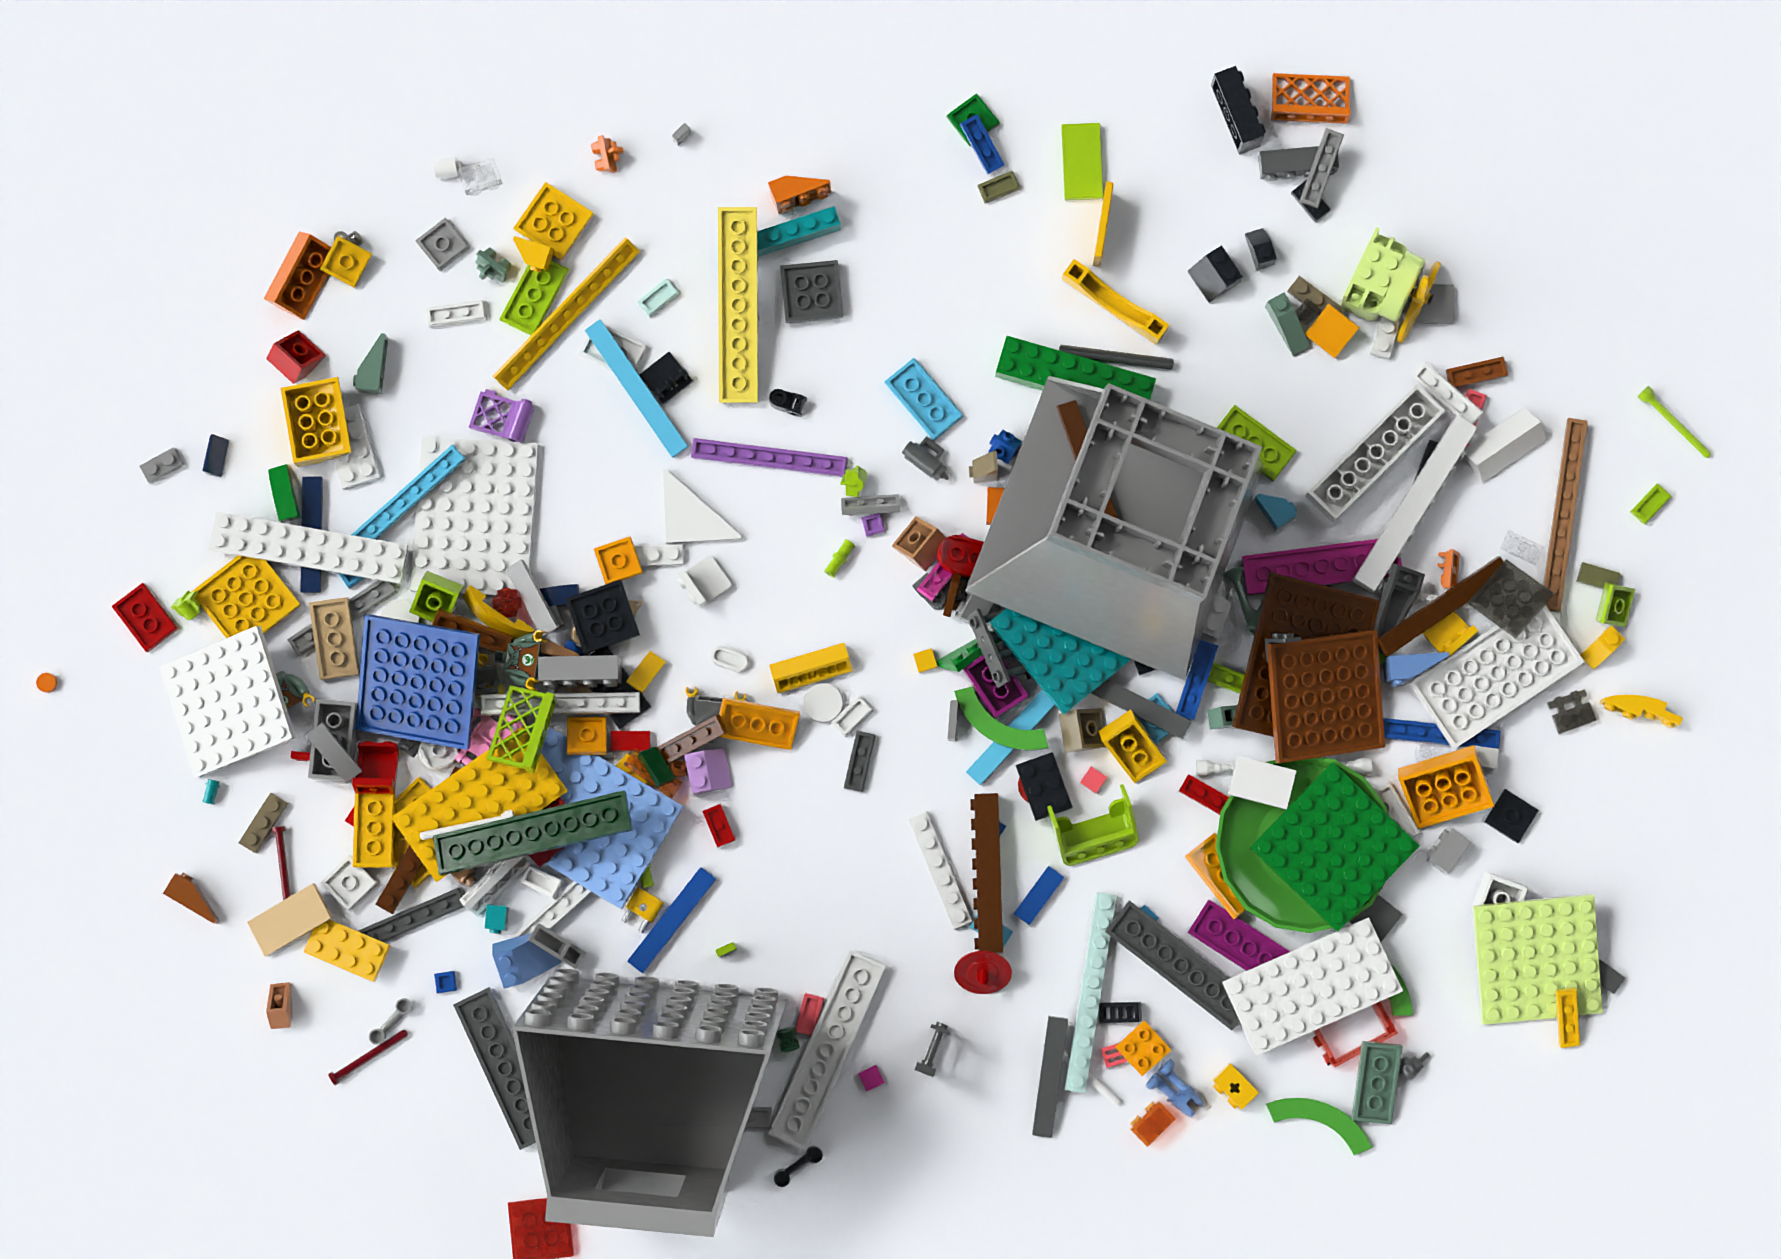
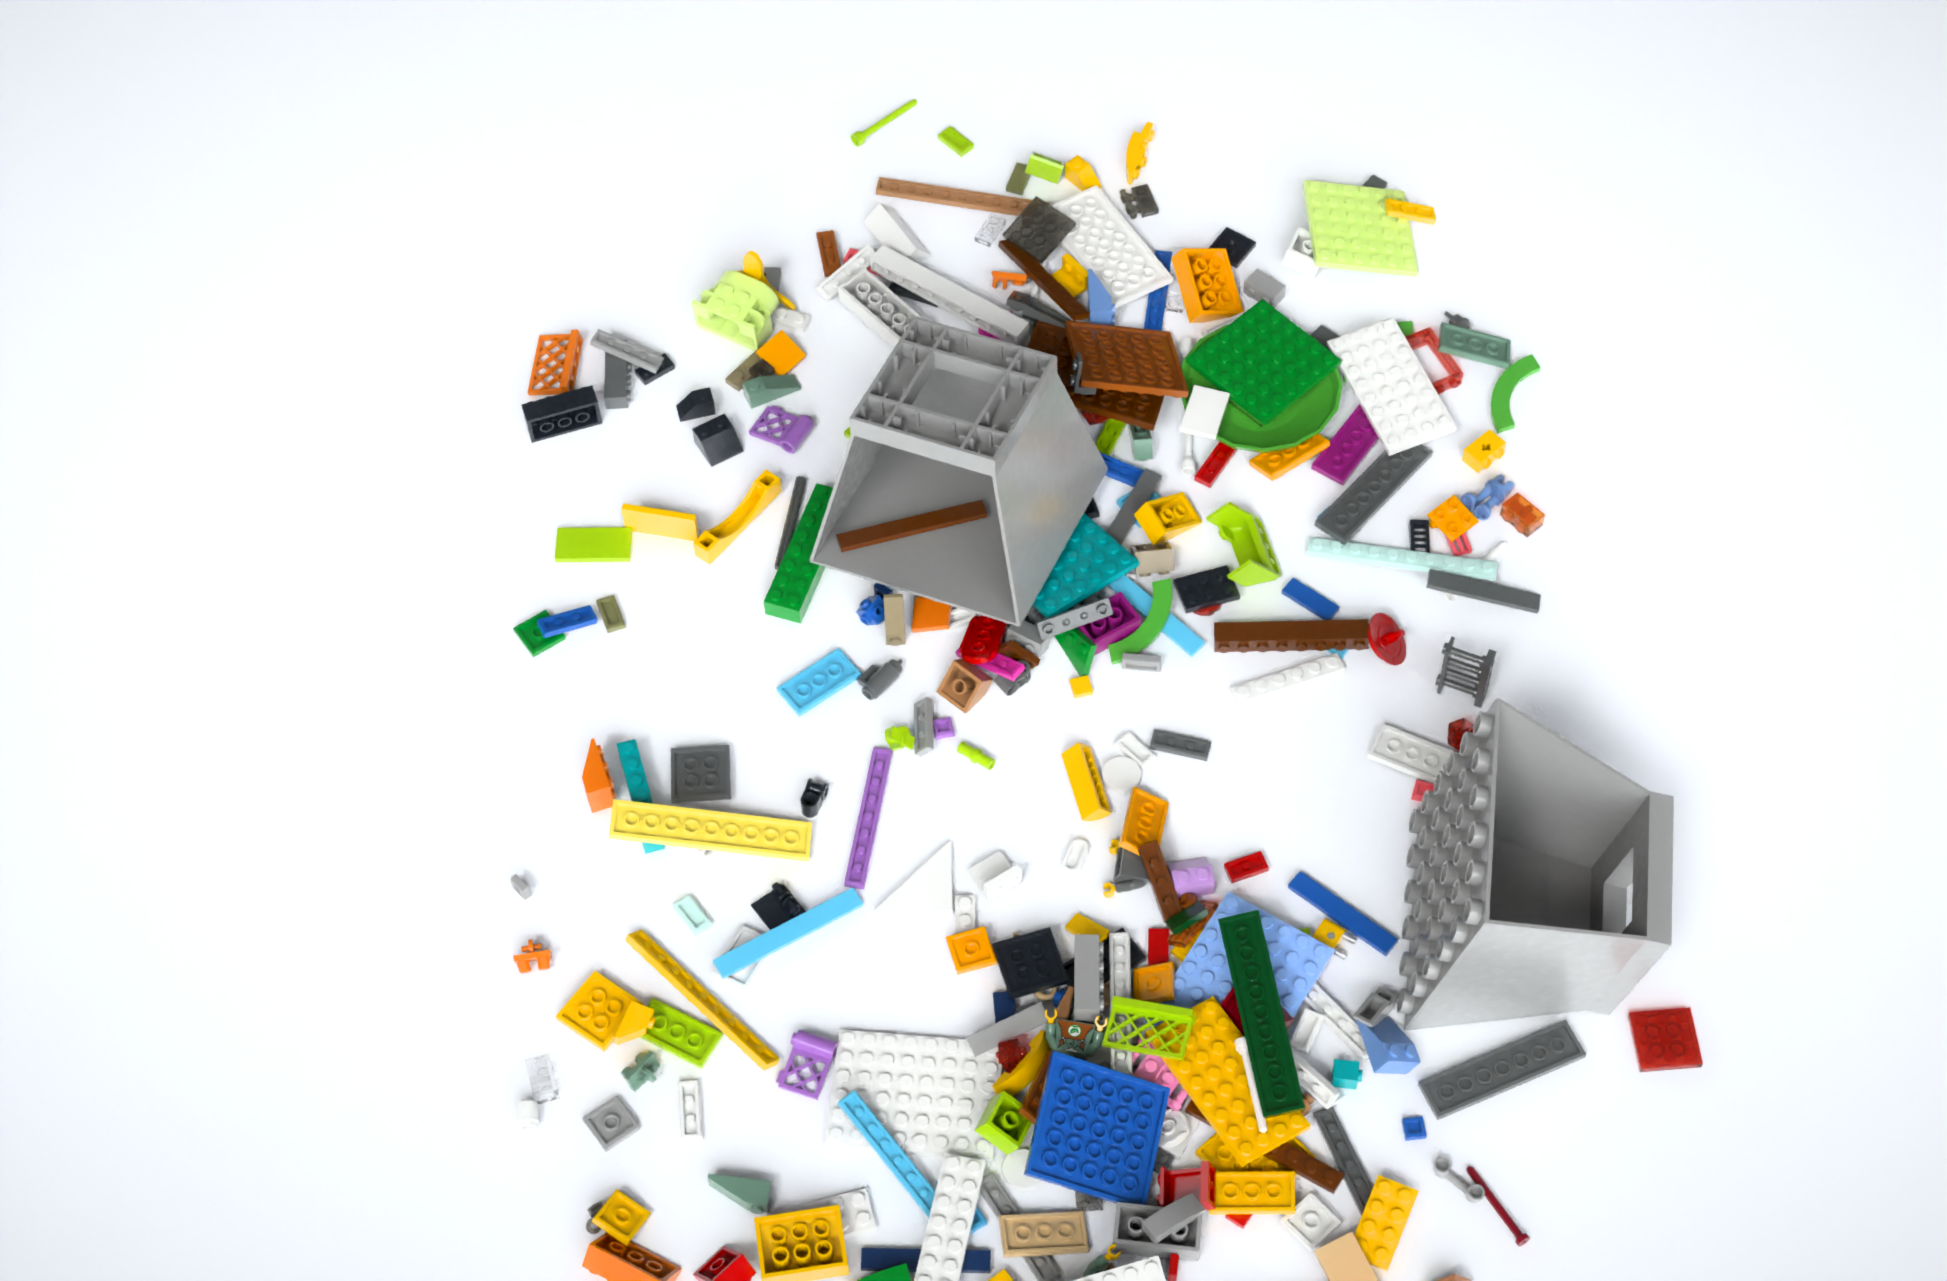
camera: 90 degrees left, 25 degrees down
(726, 949) = (1371, 862): lime tile -> none
(872, 1045) = (1456, 731): none -> clear red brick
(1093, 780) = (1199, 553): coral tile -> none
(1230, 353) = (792, 433): none -> medium lavender piece

